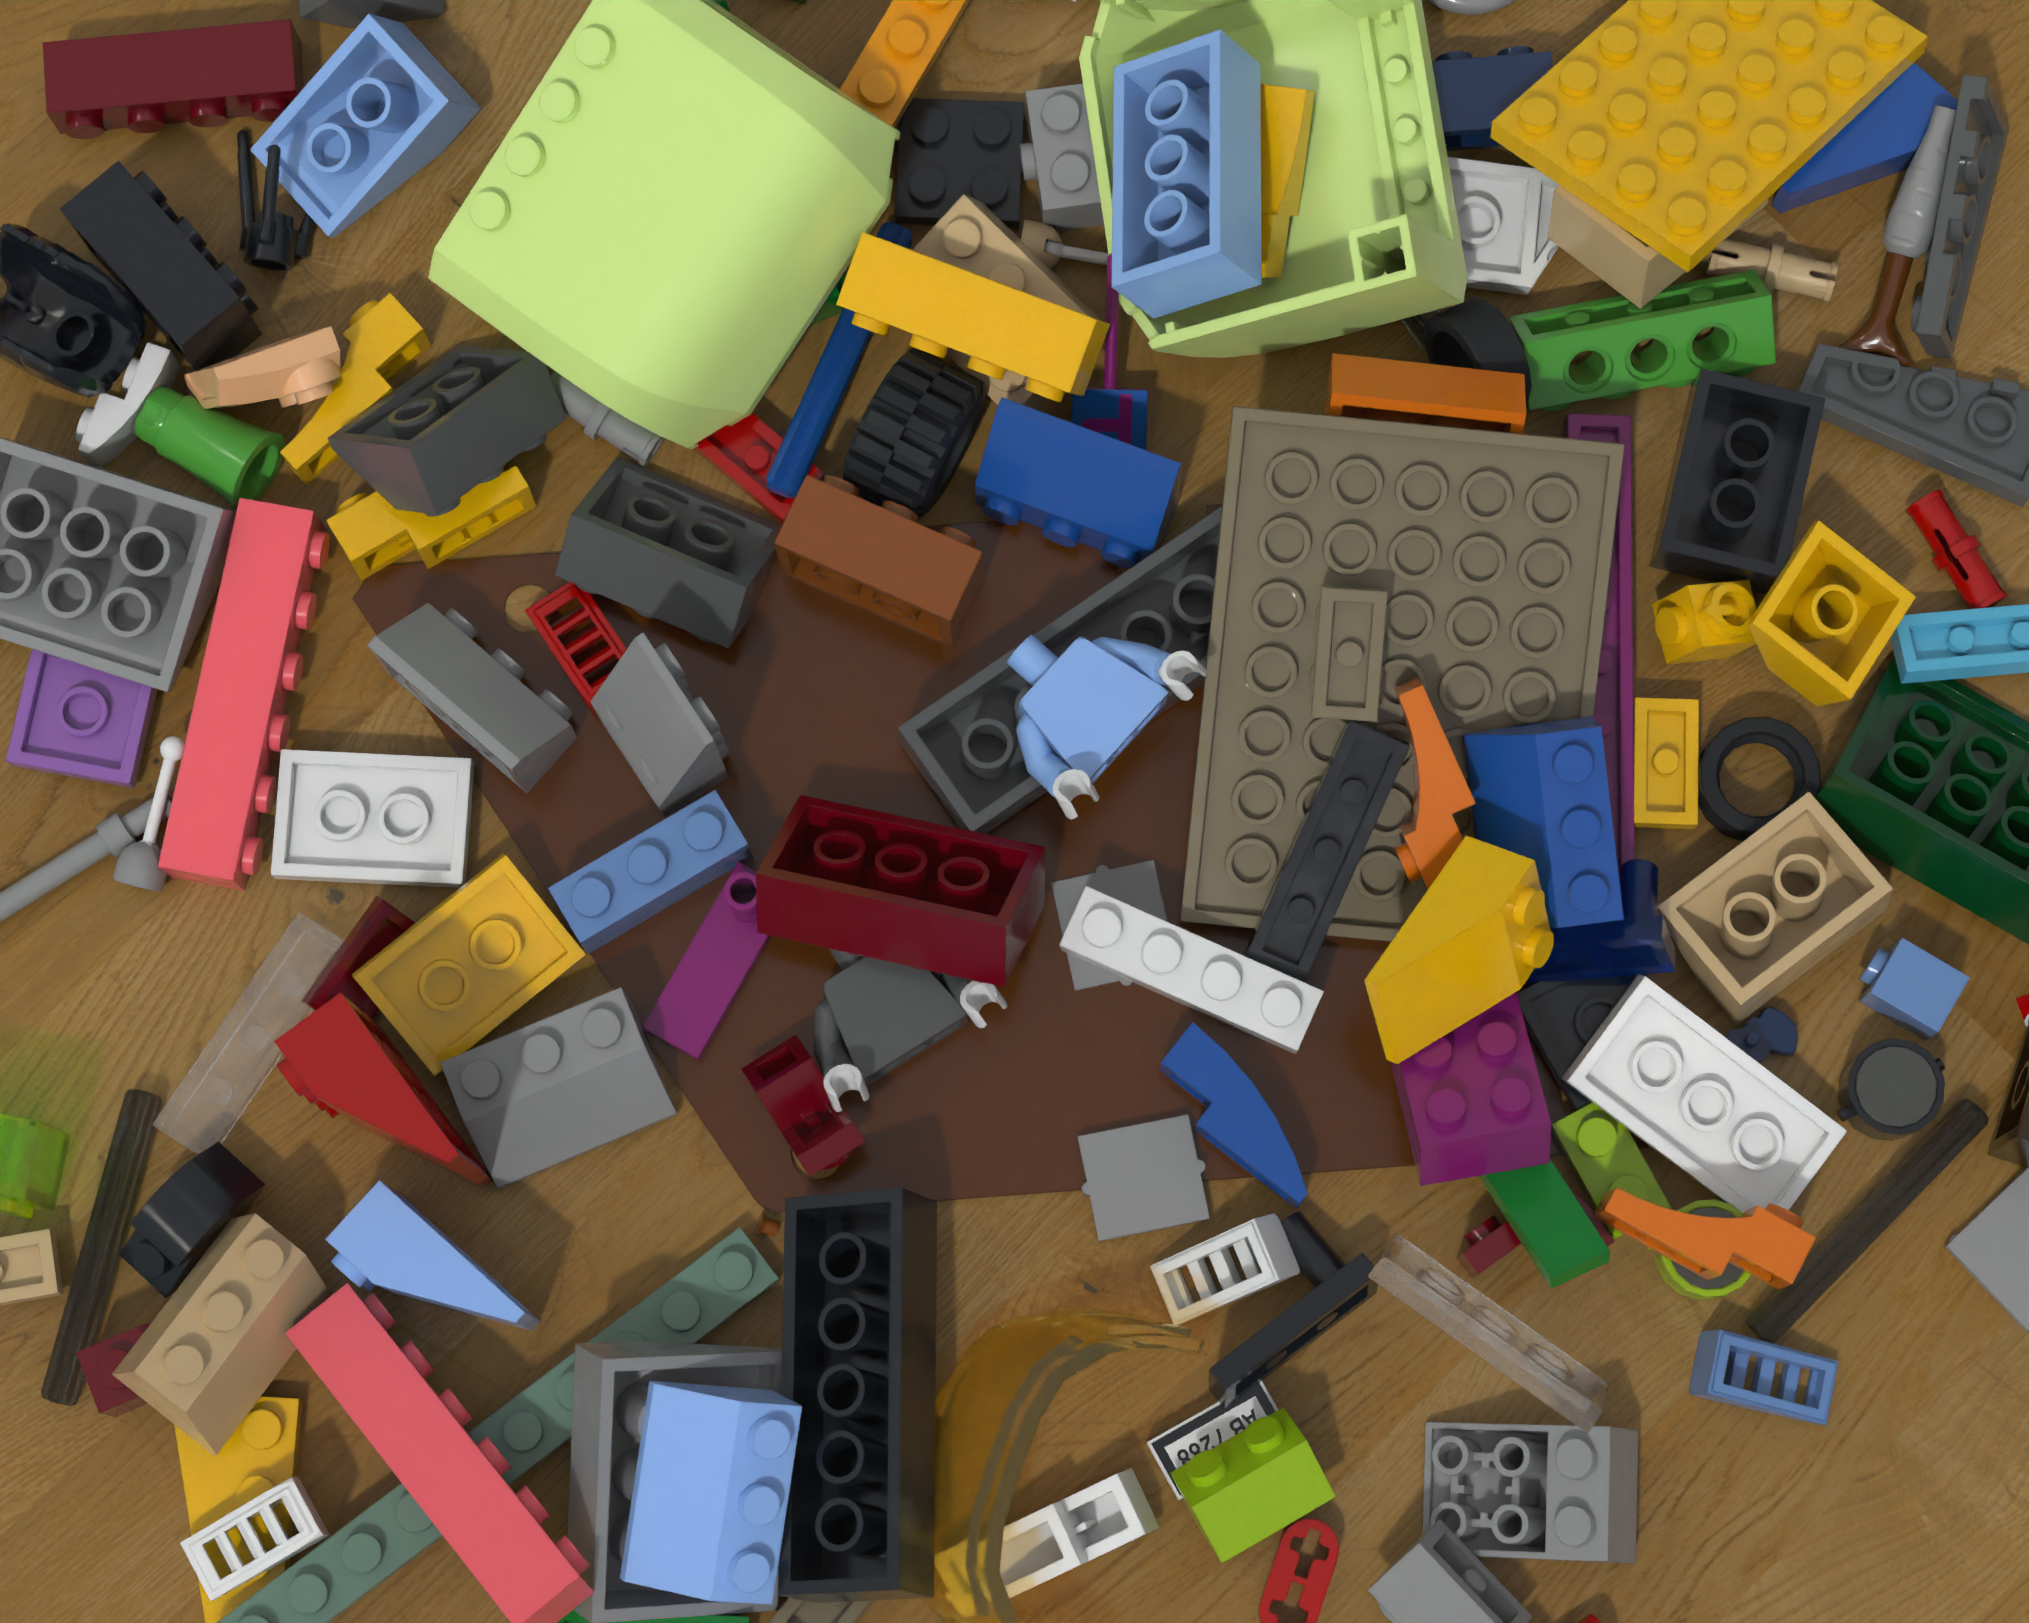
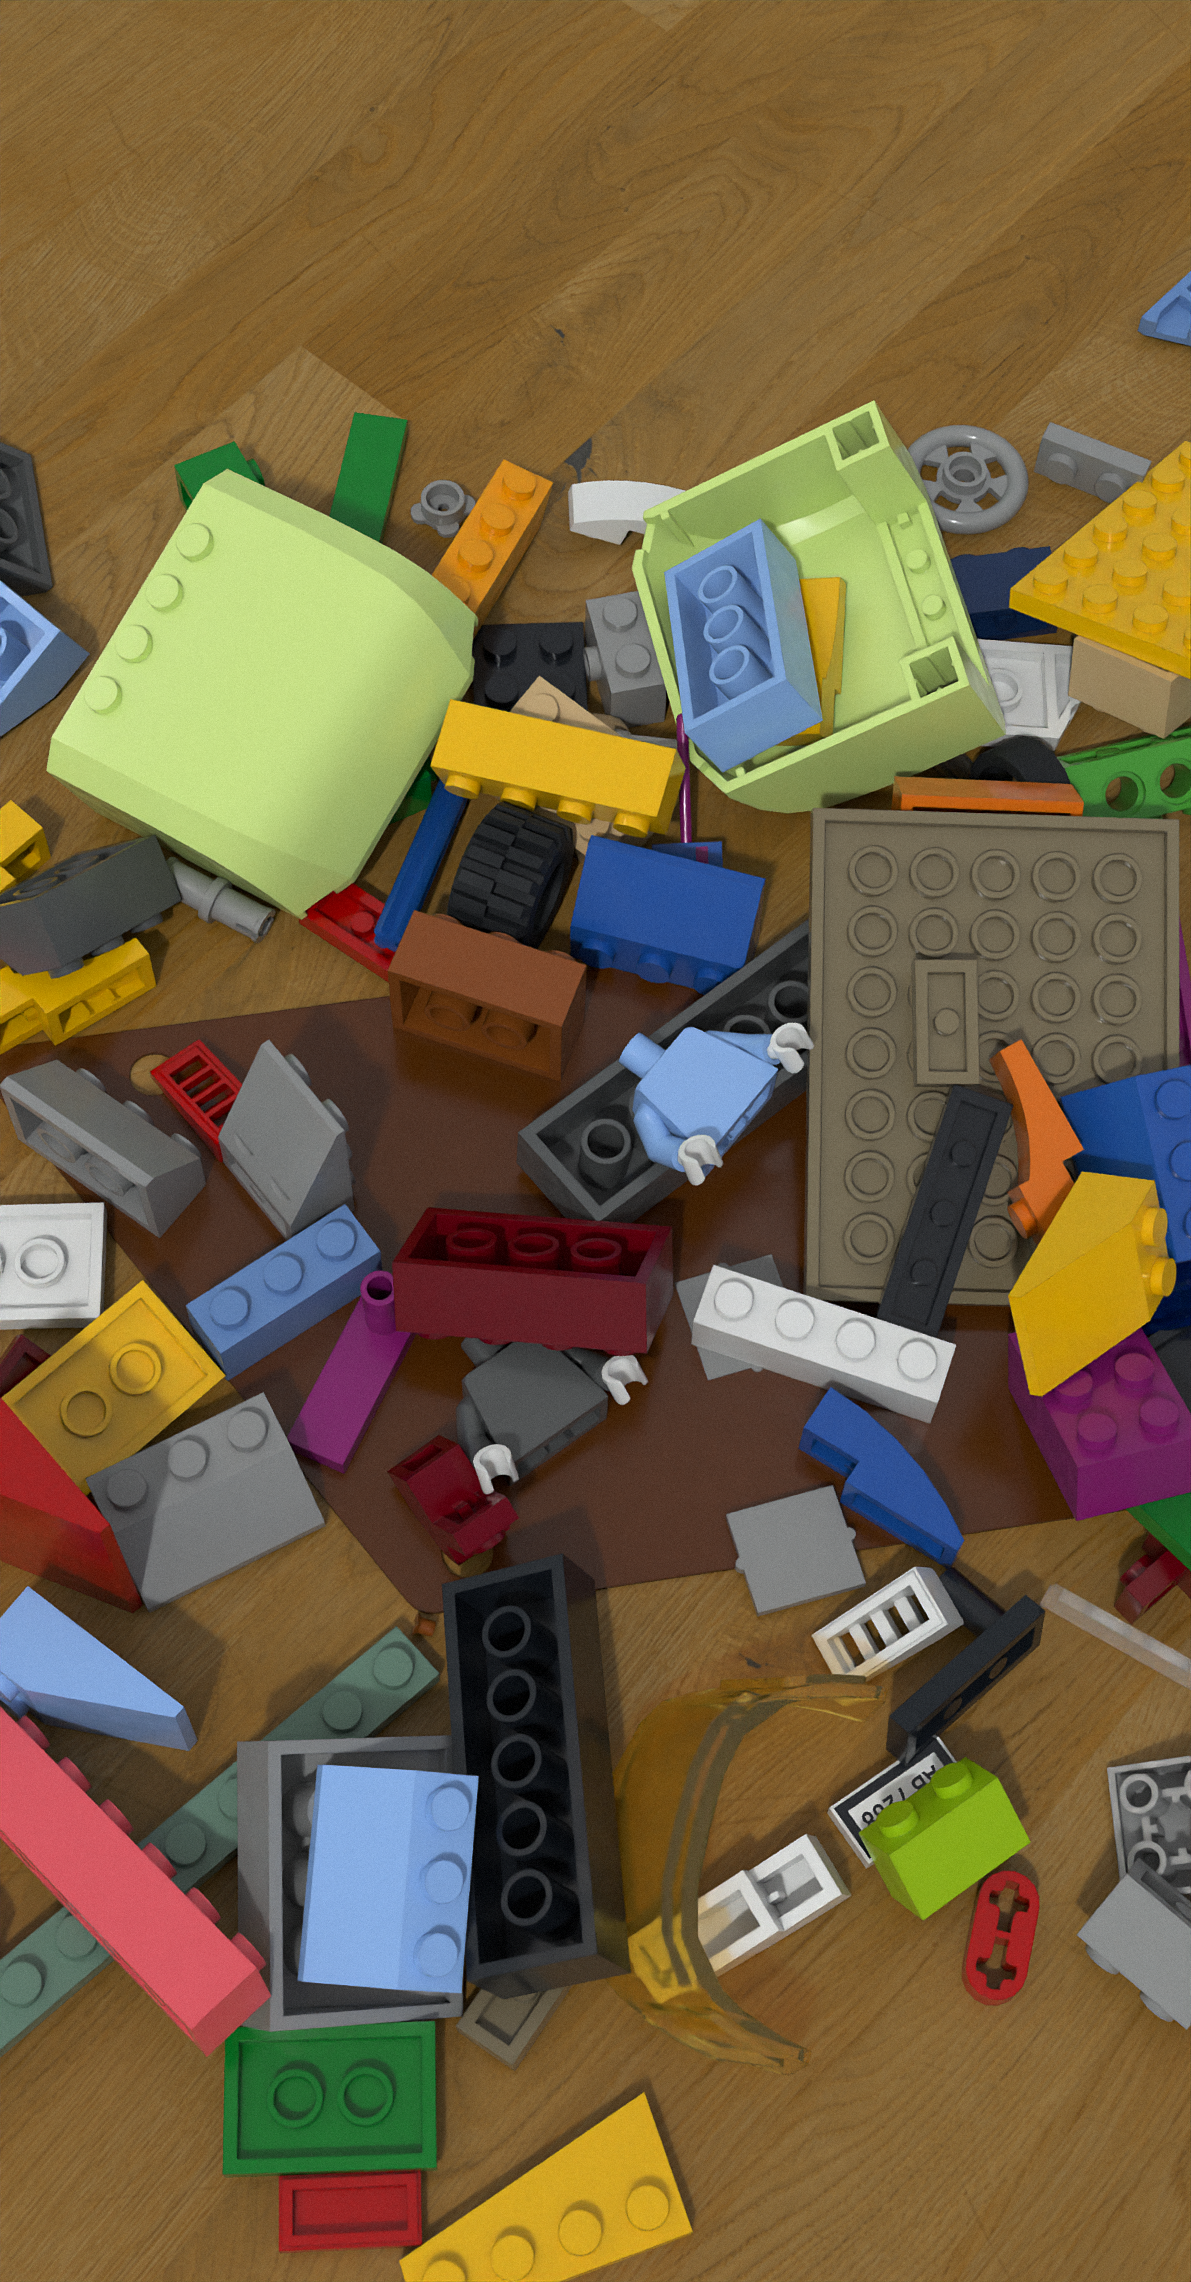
camera: 10 degrees left, 15 degrees down
(669, 552) = (305, 1008): dark grey slope -> none

